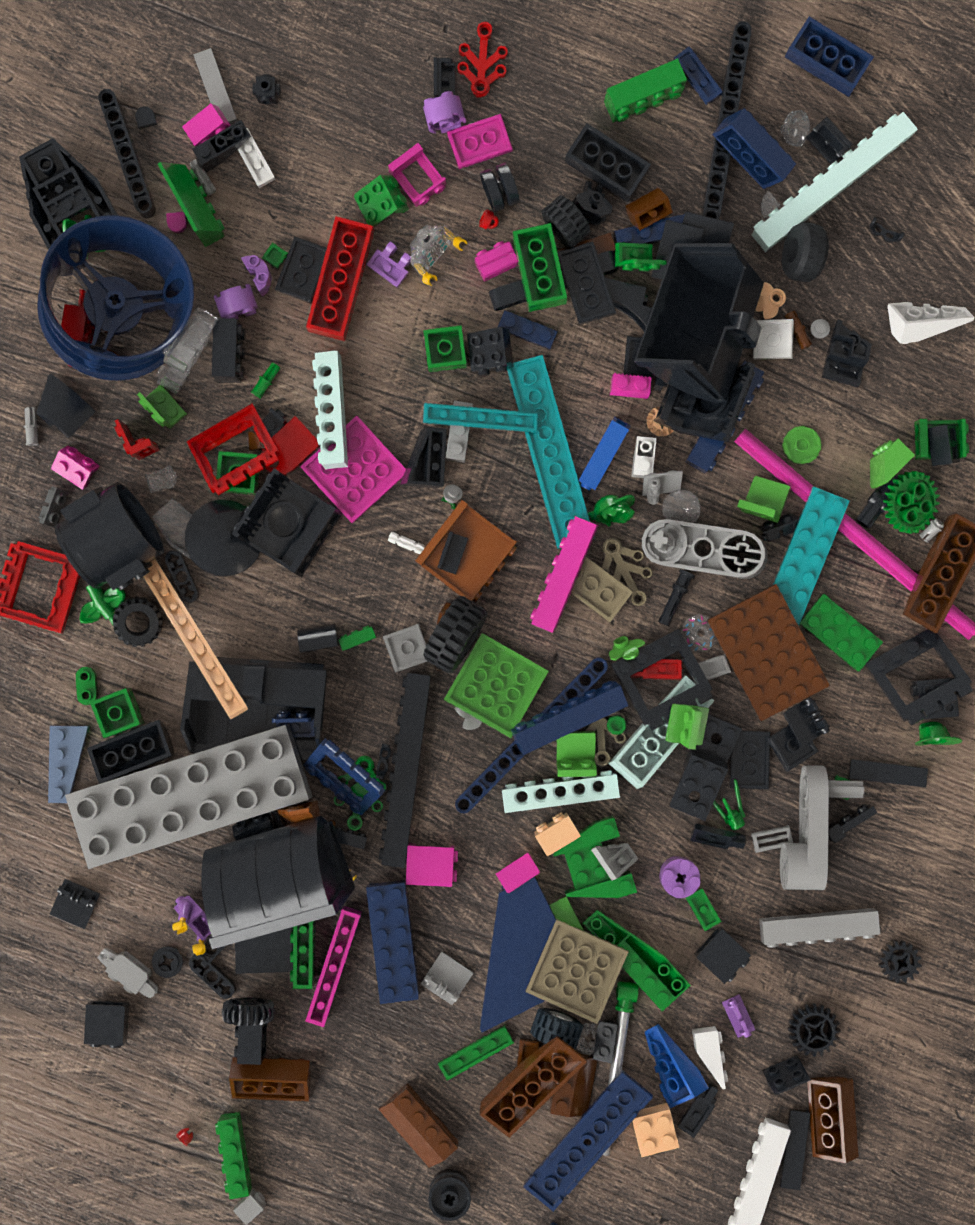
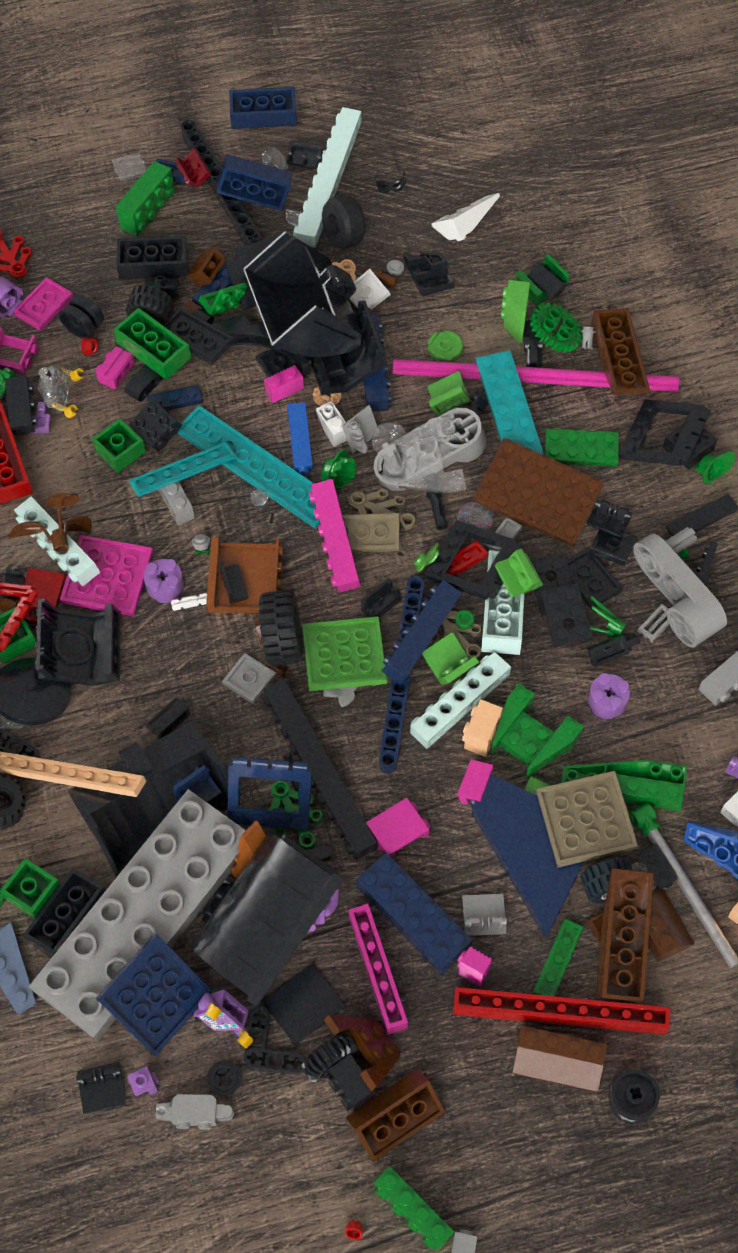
camera: 35 degrees left, 25 degrees down
(105, 926) = (143, 1081): none -> medium lavender bracket
(106, 1023) = (205, 1172): black brick -> none
(152, 870) = (153, 994): none -> dark blue plate
(288, 1026) = (371, 1041): none -> reddish brown wing
(303, 956) = (339, 971): green brick -> none
(330, 417) = (58, 536): none -> reddish brown plant
(357, 638) = (201, 696): green piece -> none
(386, 248) = (20, 405): none -> black brick
(392, 500) = (163, 580): none -> medium lavender brick
(405, 1018) = (474, 966): none -> dark pink brick
(427, 460) = (162, 528): black wedge -> none
(444, 1096) = (561, 1011): none -> red brick
(530, 485) = (259, 497): none -> clear plate
(561, 657) = (380, 600): none -> black hinge
(602, 1125) = (711, 980): dark blue piece -> none
(615, 858) = (545, 715): light grey wing -> none
(659, 34) = (129, 167): none -> clear piece
(687, 562) = (423, 458): none -> clear wedge
(703, 909) = (648, 710): green plate -> none
(711, 87) = (193, 168): none -> dark red bracket
(722, 955) = (693, 731): black brick -> none

